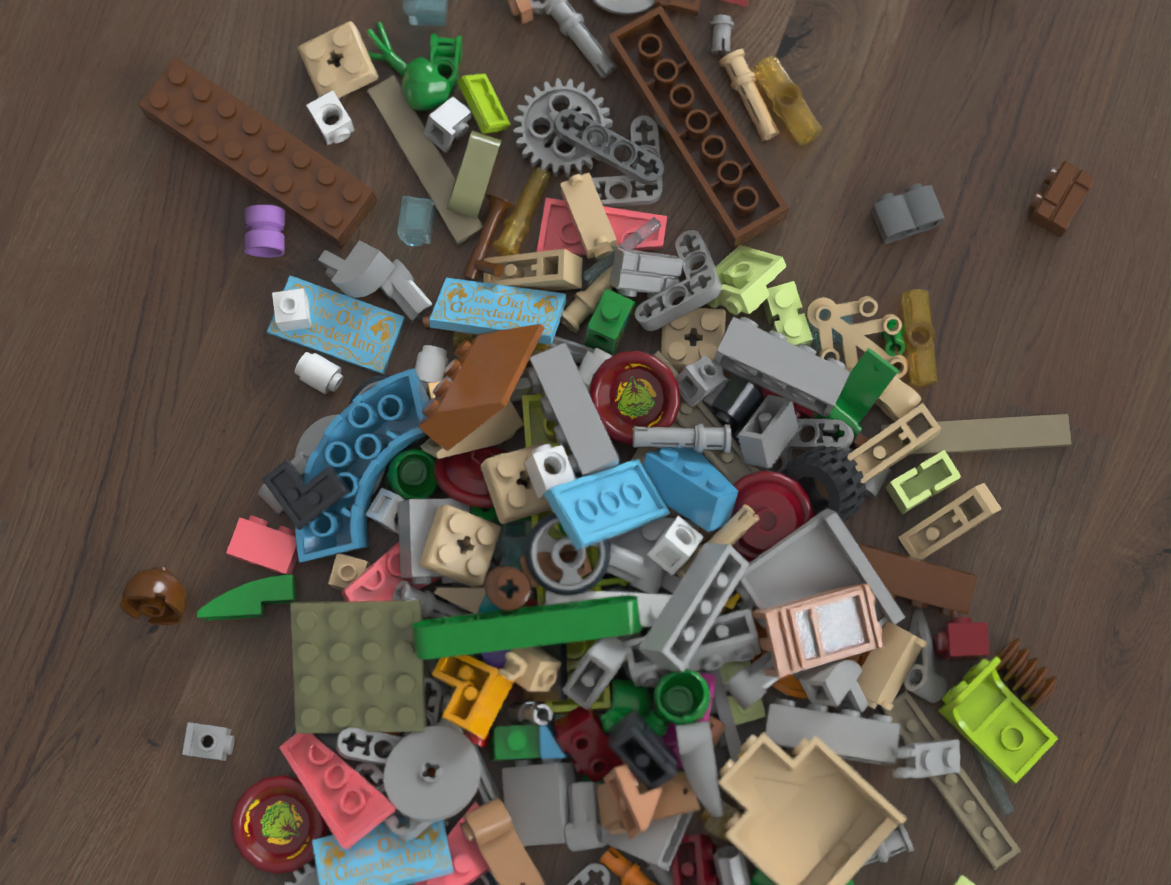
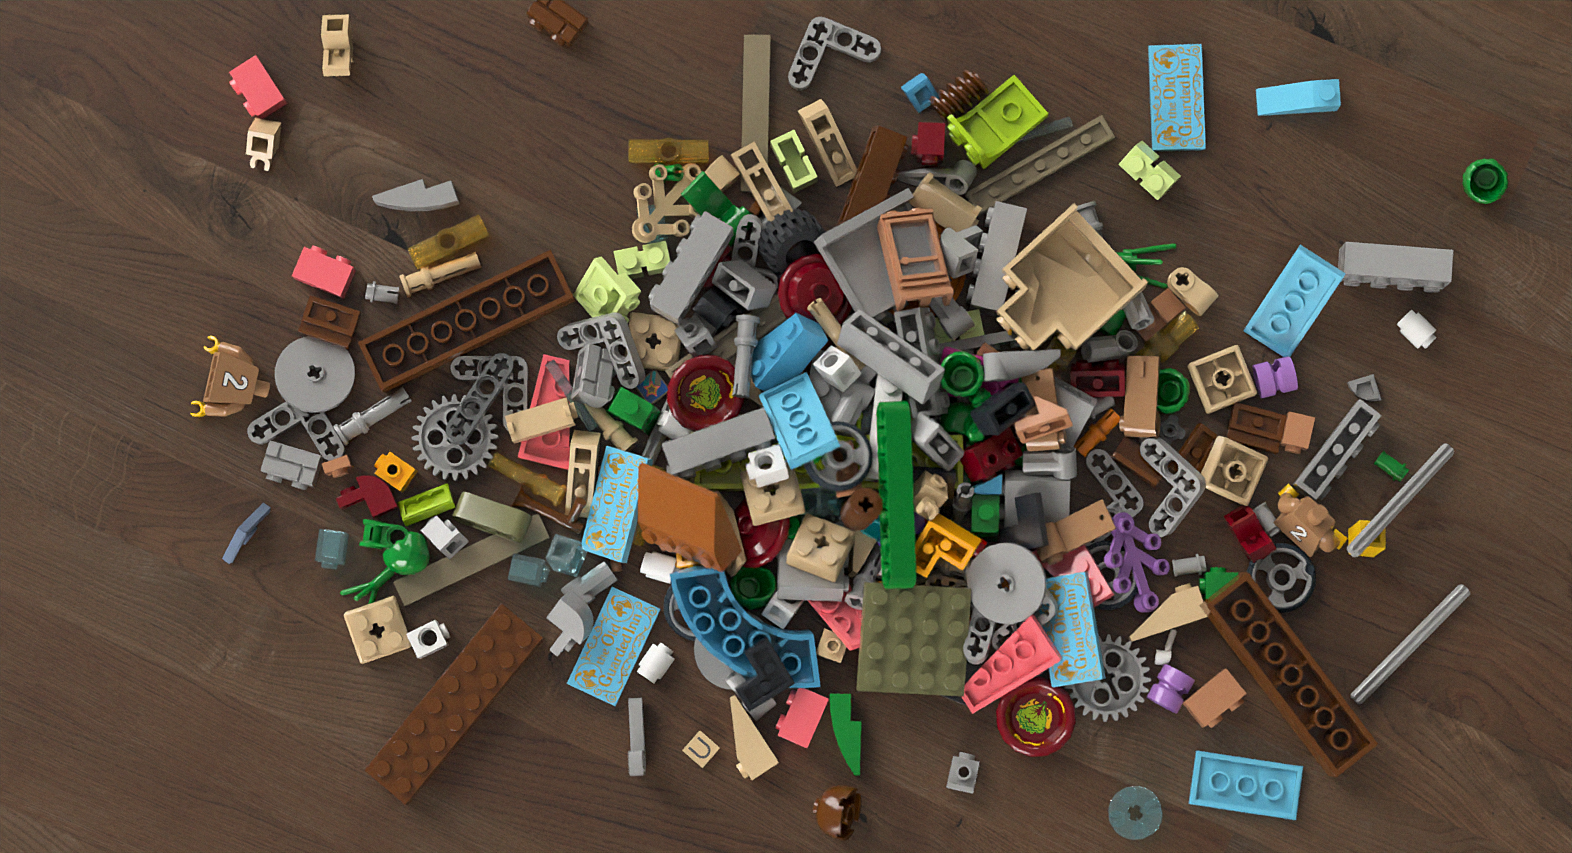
camera: 80 degrees left, 5 degrees up
(200, 359) = (637, 755): none -> light grey beam
(223, 434) = (701, 749): none -> tan tile
(228, 489) = (751, 748): none -> tan slope
(264, 234) = (526, 702): medium lavender wheel -> none
(292, 310) = (601, 680): white brick -> none
(435, 259) = (566, 555): none -> clear light blue brick
(491, 47) = (375, 492): none -> dark red brick
(500, 799) = (1031, 525): none -> black tile
(518, 75) = (401, 478): none -> light orange brick
(640, 340) = (653, 387): none -> tile
(836, 65) = (418, 197): none -> light grey slope
(907, 213) = (558, 149): dark grey brick -> none
(928, 758) = (1024, 181): light grey hinge -> none
(1024, 626) = (919, 91): none -> dark azure slope
(1073, 515) = (829, 40): none -> light grey beam

